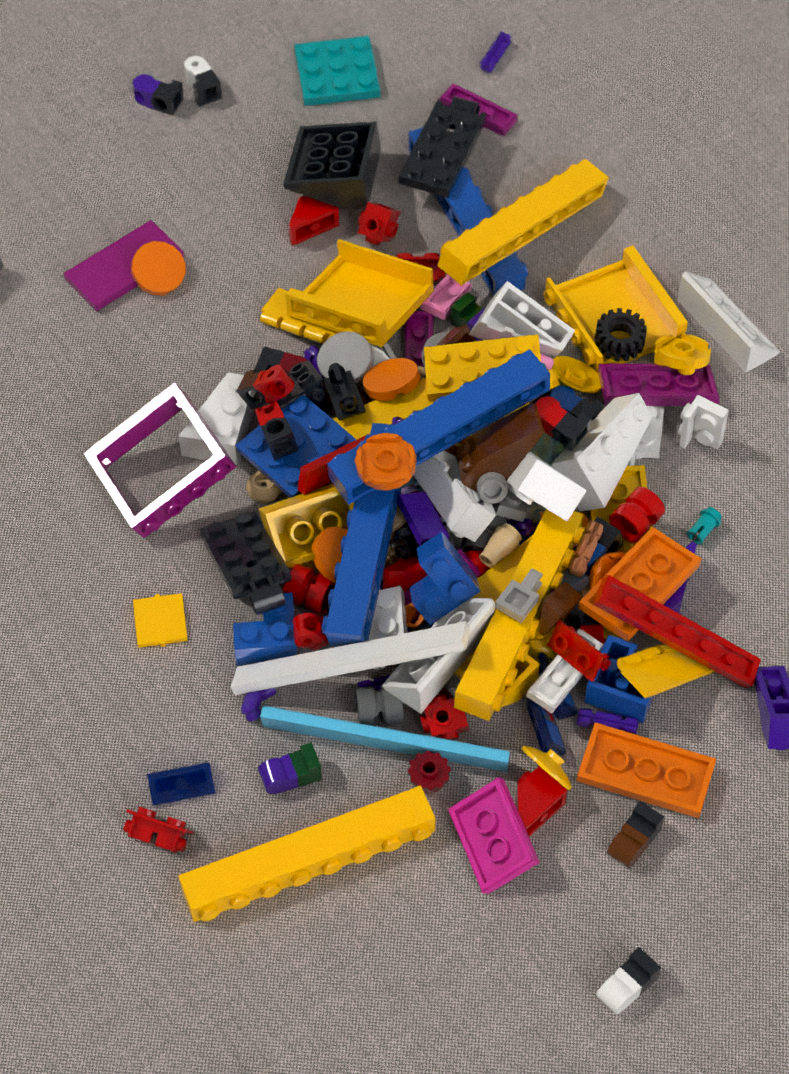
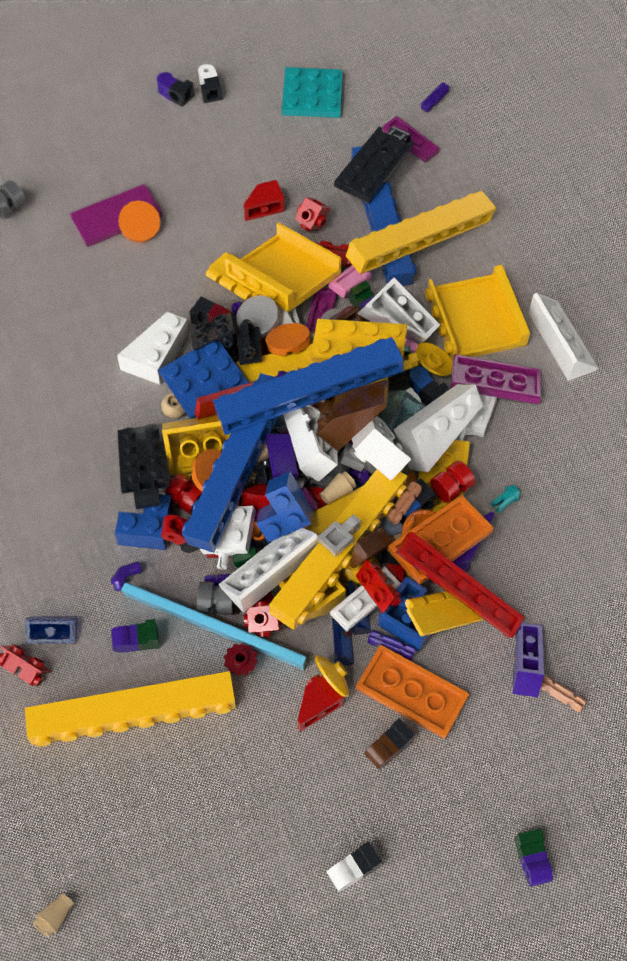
camera: 10 degrees right, 5 degrees up
(137, 429) = (82, 347): window -> none
(160, 620) = (70, 496): yellow piece -> none
(268, 384) = (193, 328): red leg -> none
(276, 430) = (187, 365): black leg -> none
(335, 163) = (290, 163): black slope -> none
(351, 658) = (200, 558): white tile -> none
(385, 461) = (257, 407): orange tile -> none
(492, 487) = (339, 442): light grey tile -> none
(493, 836) = (277, 723): dark pink tile -> none
(561, 424) = (405, 399): leg -> none
(620, 322) = (475, 344): black tyre -> none
(683, 353) = (520, 357): yellow plate -> none
(703, 422) = (523, 415): white bracket -> none

